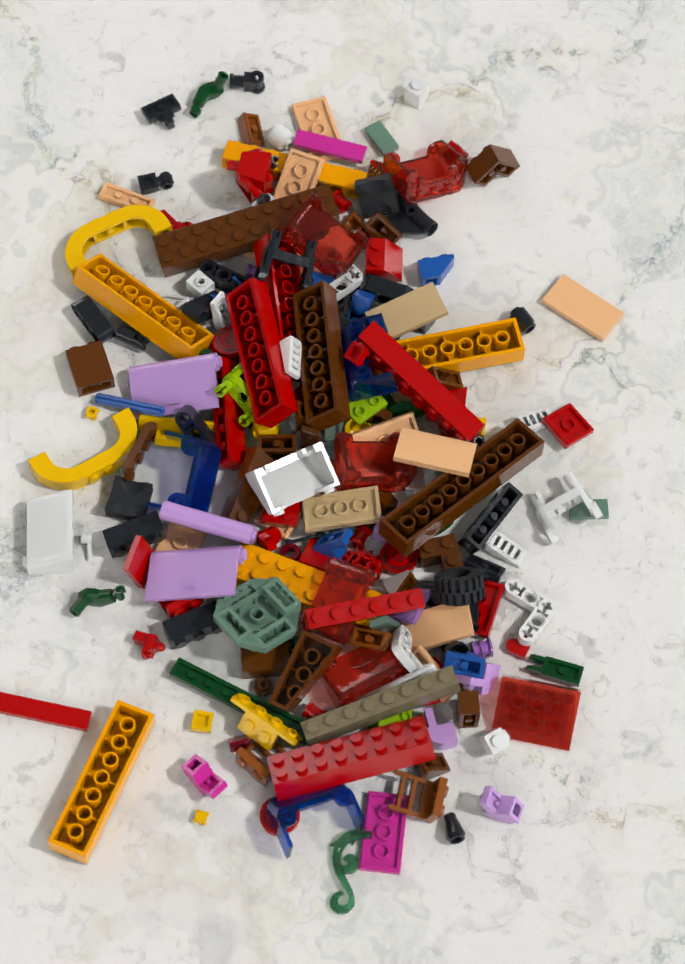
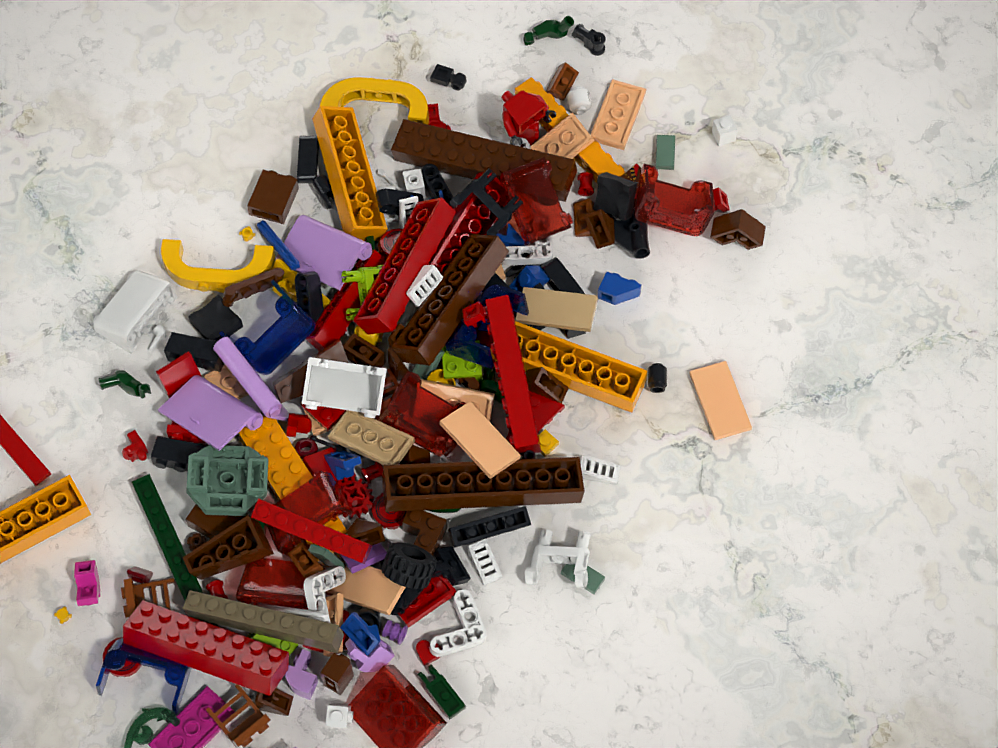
camera: 40 degrees right, 0 degrees up
(122, 197) = (414, 75): light nougat tile -> none
(162, 111) = (502, 22): black hinge -> none
(202, 721) = (125, 538): yellow plate -> none
(261, 725) = (165, 571): yellow bracket -> none
(329, 146) = (613, 132): dark pink tile -> none
(384, 259) = (581, 254): red slope -> none
(567, 425) = (622, 492): red tile -> none

